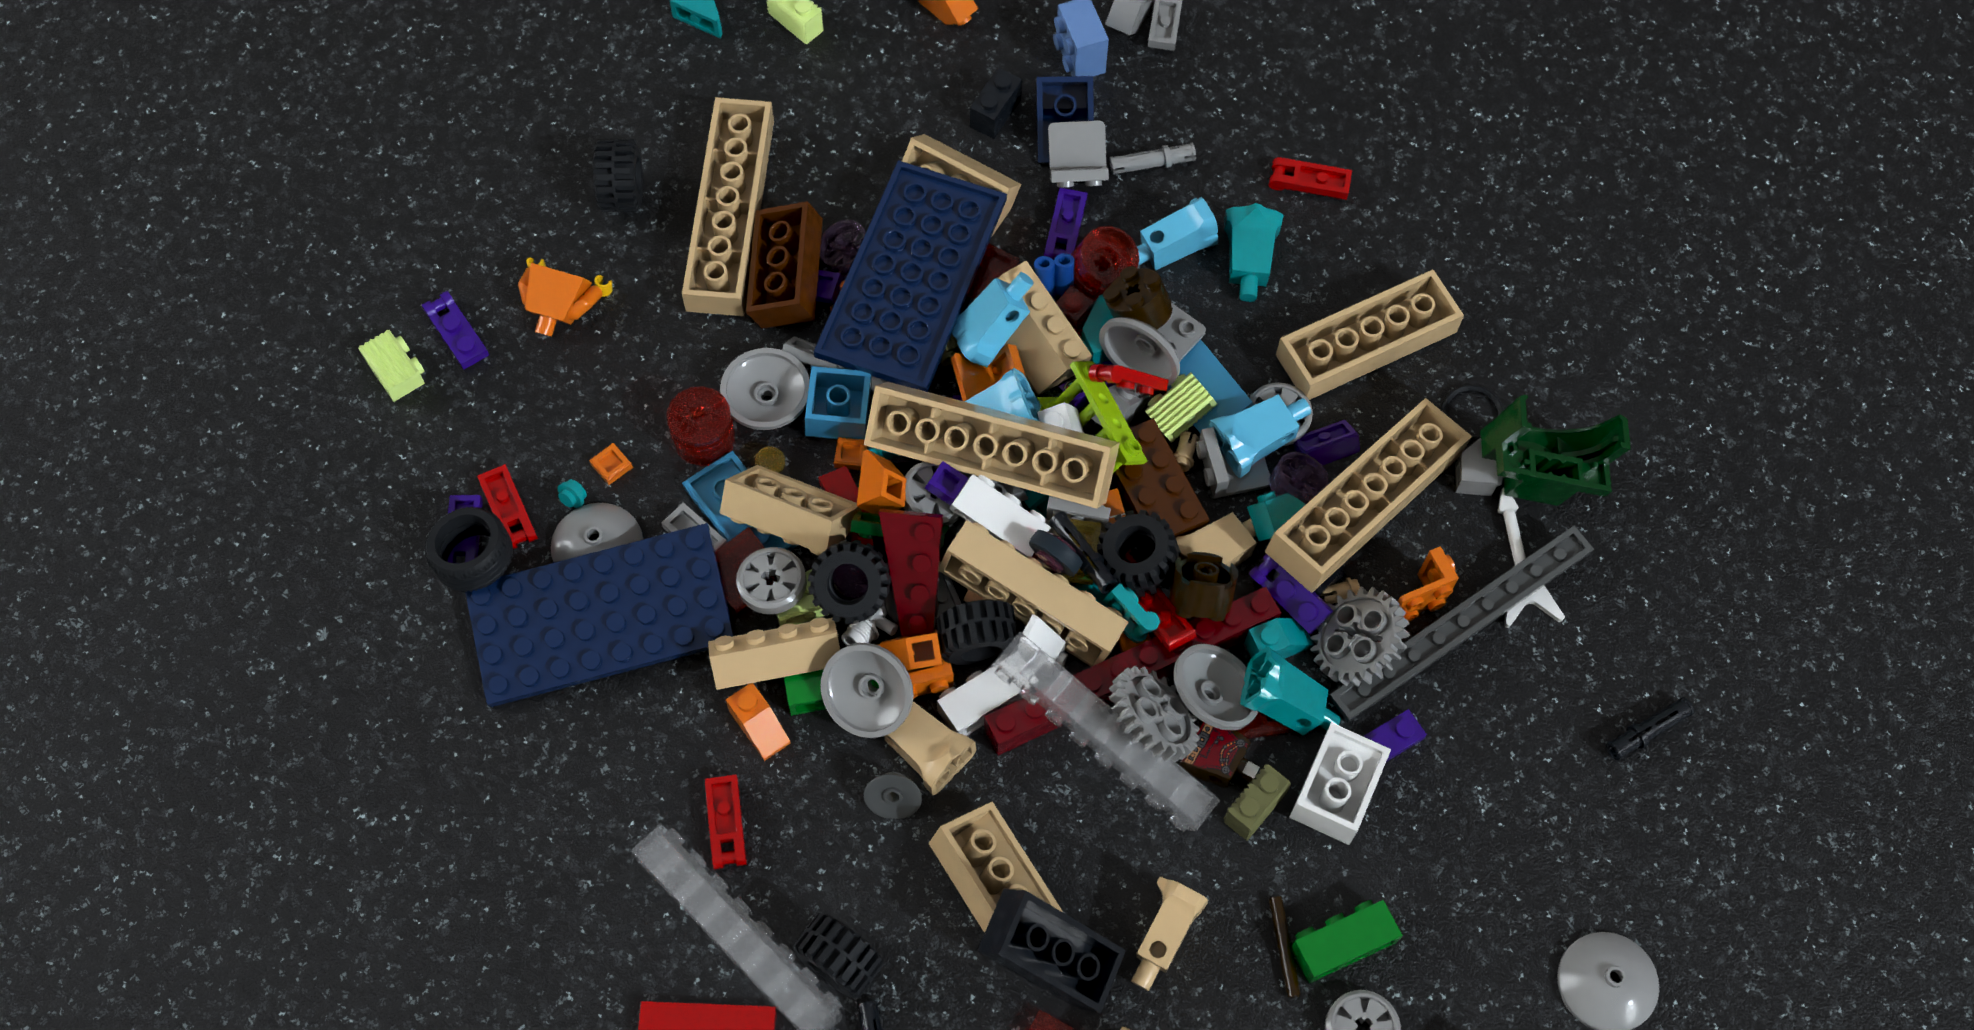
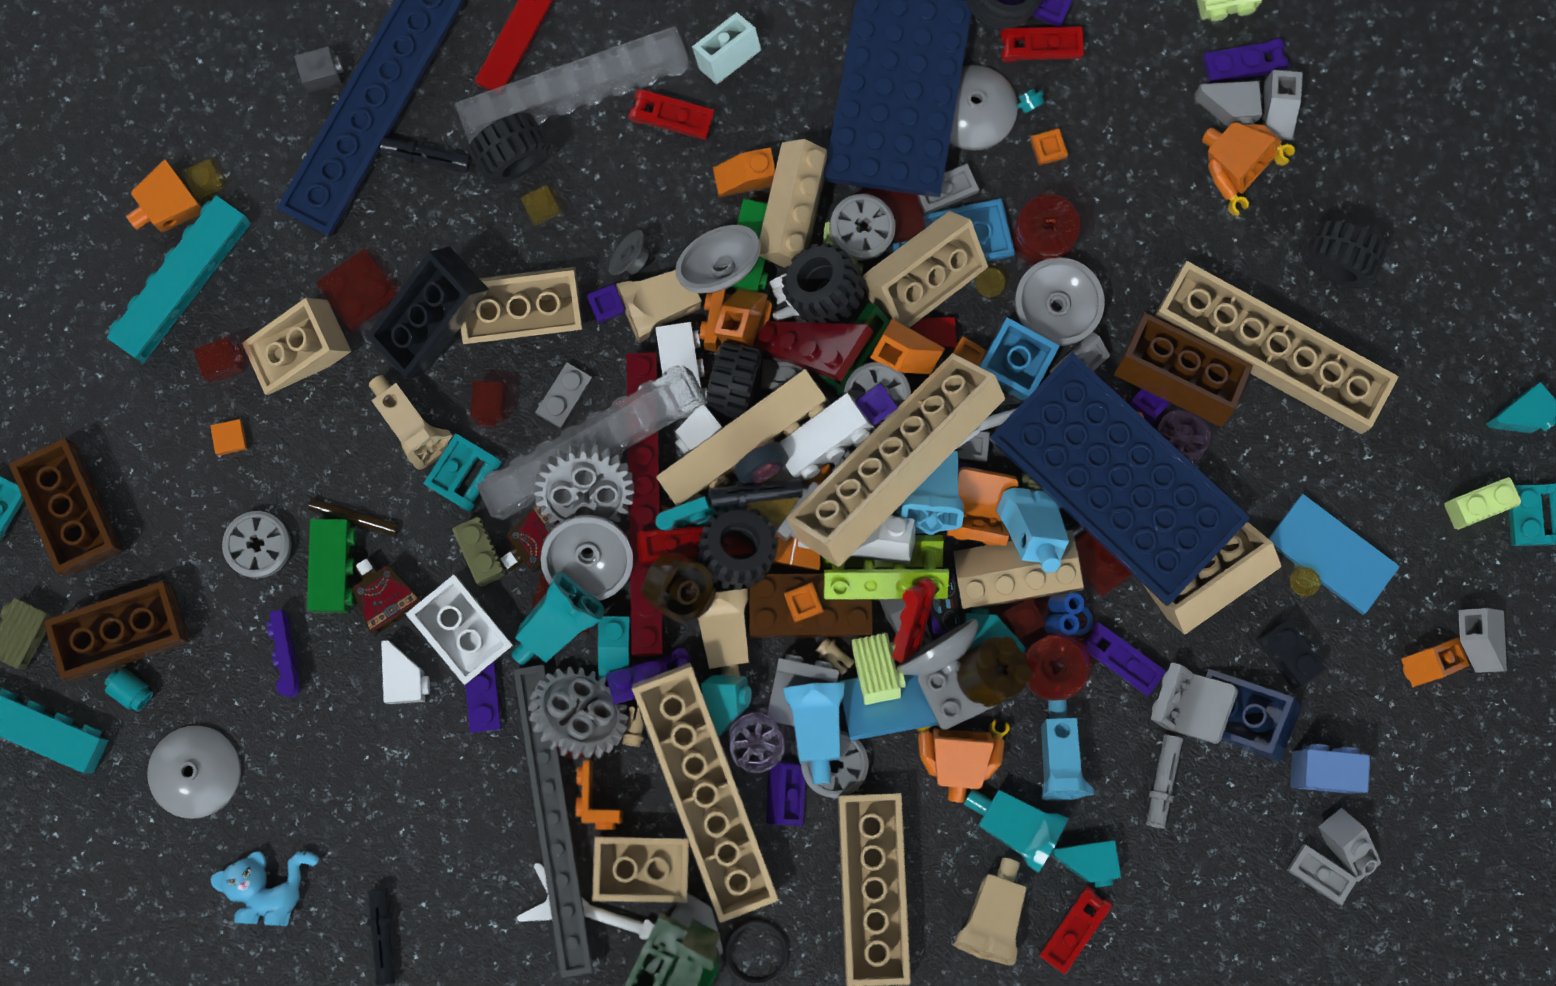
camera: 110 degrees right, 15 degrees up
(487, 280) = (1282, 102): none -> light grey slope
(504, 321) = (1231, 101): none -> light grey slope
(633, 792) = (726, 48): none -> light aqua brick
(878, 911) = (540, 205): none -> clear yellow plate
(891, 107) = (1335, 552): none -> dark azure tile
(927, 115) = (1305, 581): none -> clear yellow plate
(952, 797) = (606, 304): none -> dark purple plate
(1062, 798) = (564, 395): none -> light grey plate
(1108, 863) = (488, 403): none -> clear red brick
(1158, 480) = (803, 602): none -> orange tile
(1188, 868) = (455, 466): none -> teal plate
(1220, 309) = (961, 757): none -> orange torso
(1246, 181) = (1091, 861): none -> teal slope
(1336, 236) = (994, 917): none -> tan piece
(1346, 874) = (382, 596): none -> torso
(1412, 819) = (402, 677): none -> white slope
(1455, 943) = (284, 655): none -> dark purple plate
(1465, 525) = (640, 869): none -> tan slope
(1677, 873) = (247, 881): none -> medium azure animal

